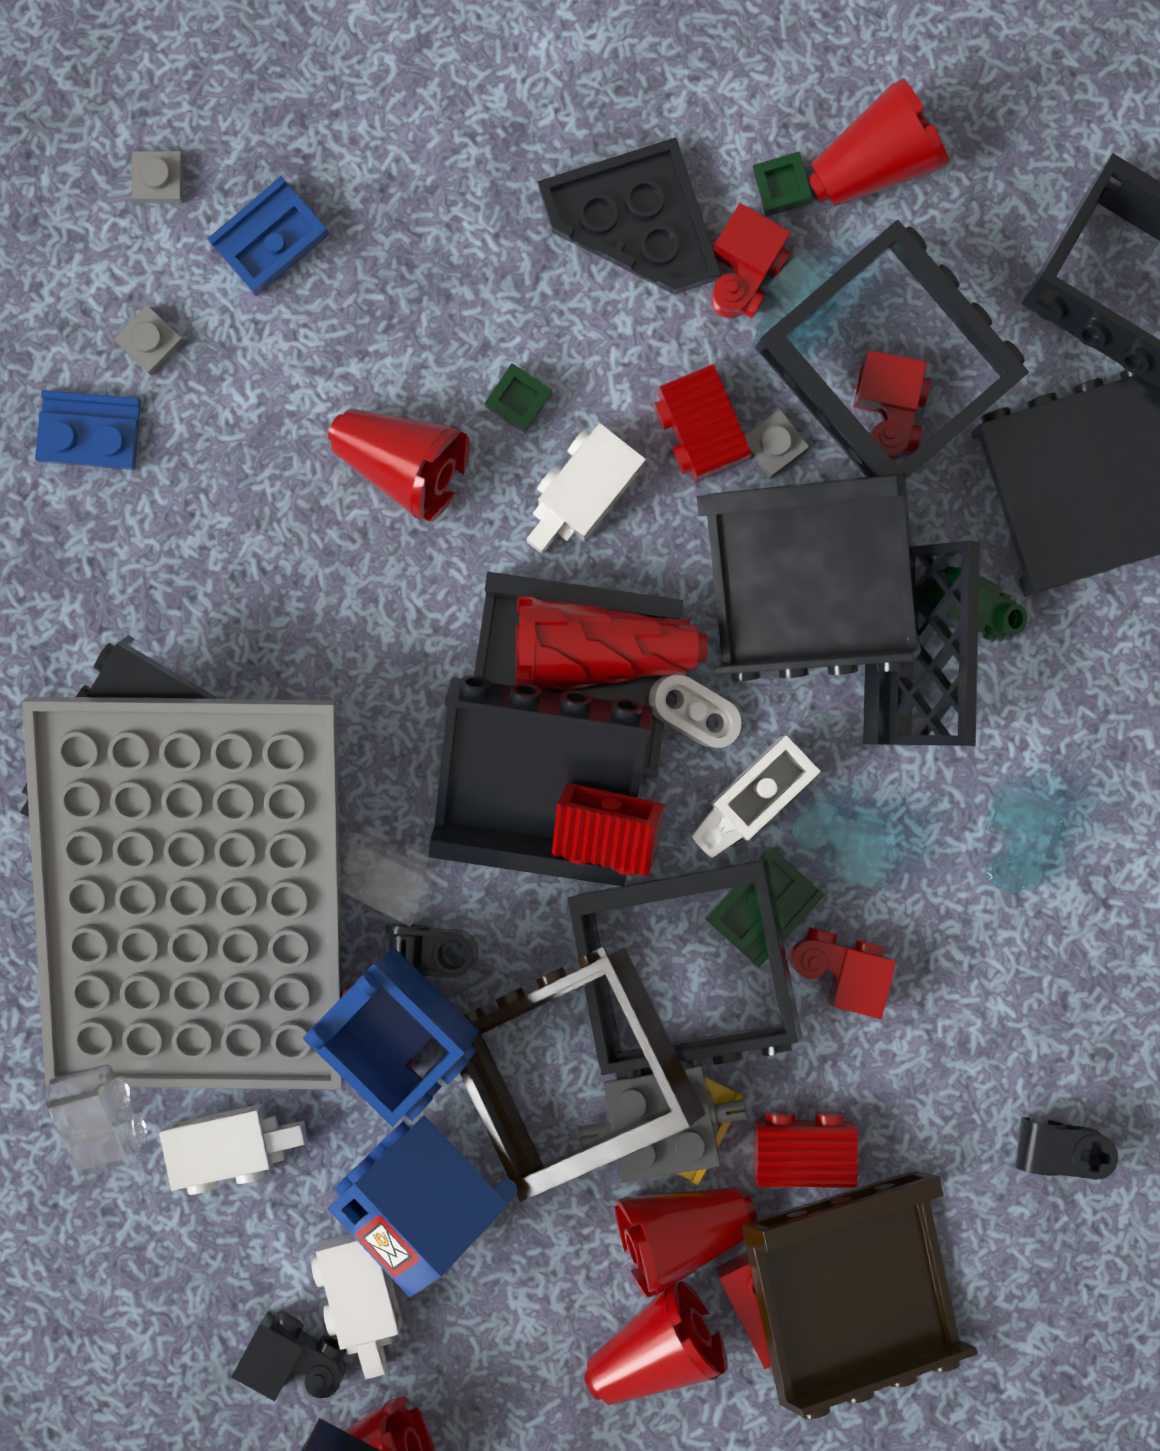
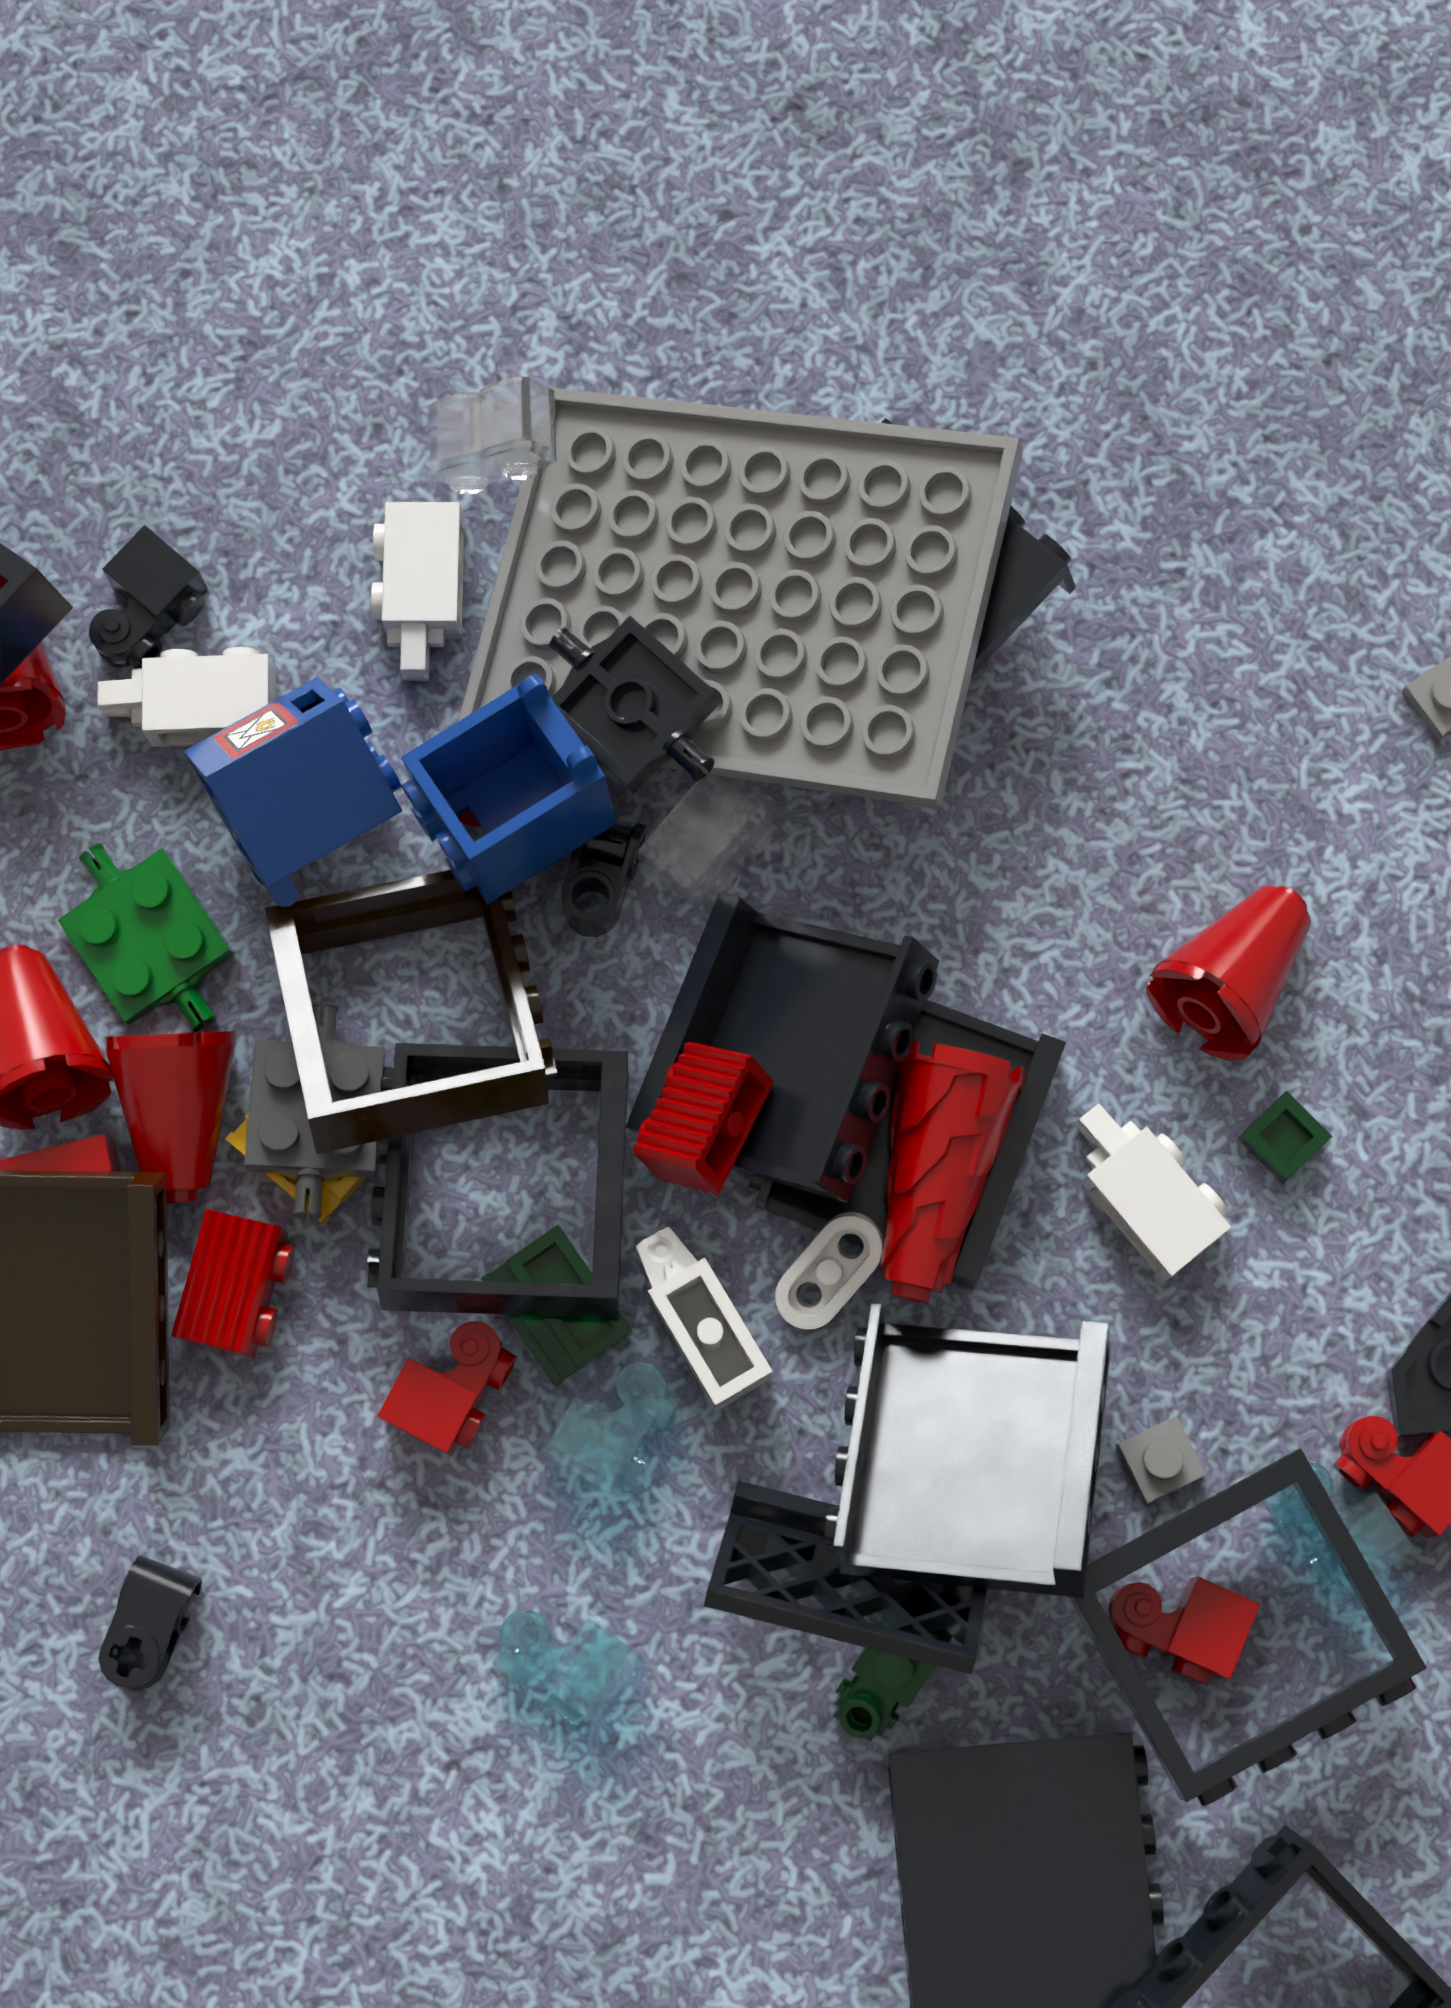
camera: 105 degrees right, 10 degrees down
(88, 430) = (1345, 601): blue plate -> none
(300, 957) = (634, 703): none -> black plate
(554, 1286) = (146, 937): none -> green plate
(702, 424) = (1205, 1365): red brick -> none

